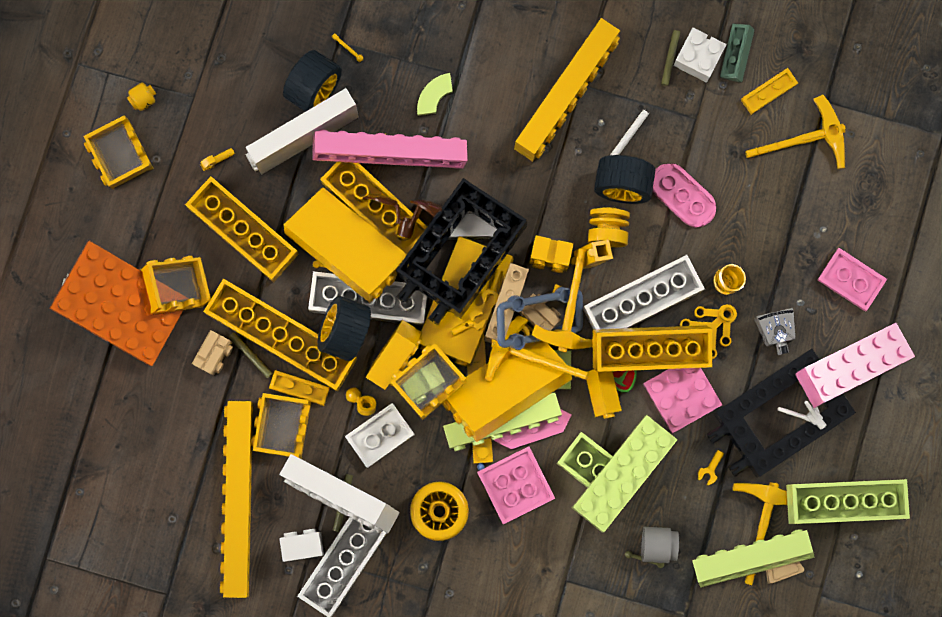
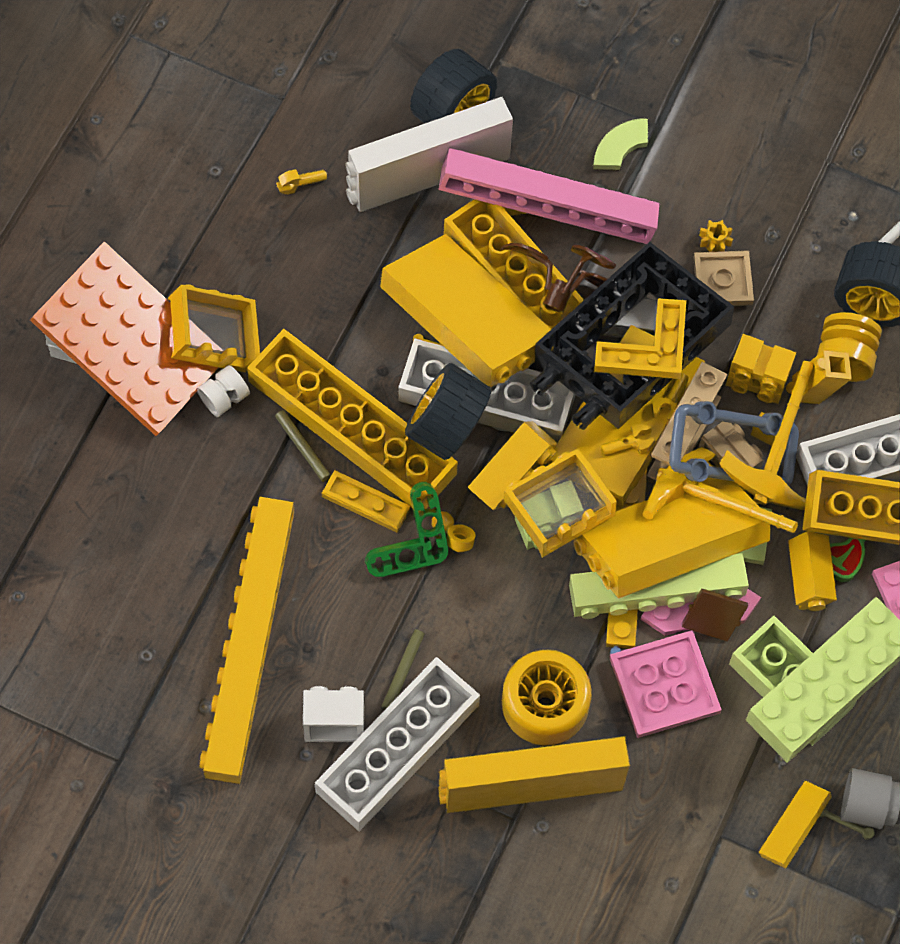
camera: 10 degrees right, 15 degrees down
(117, 152) = (163, 149): window -> none
(141, 96) = (210, 84): yellow head -> none
(190, 326) = (221, 392): none -> white wheel
(212, 353) = (248, 432): tan brick -> none
(242, 229) = (321, 273): yellow brick -> none
(281, 425) = (331, 545): clear window -> none
(339, 416) = (419, 546): none -> green beam
(339, 495) = (404, 642): white brick -> none
(359, 58) = (522, 82): yellow hinge -> none
(379, 435) = (473, 583): white plate -> none
(437, 568) = (533, 774): none -> yellow brick
(482, 271) = (659, 360): none -> yellow plate
(505, 152) = (718, 230): none -> yellow gear
(518, 186) = (726, 274): none -> tan plate
(542, 435) = (714, 614): none -> reddish brown piece
(567, 89) = (811, 160): yellow brick -> none
(612, 567) = (795, 824): none -> yellow tile

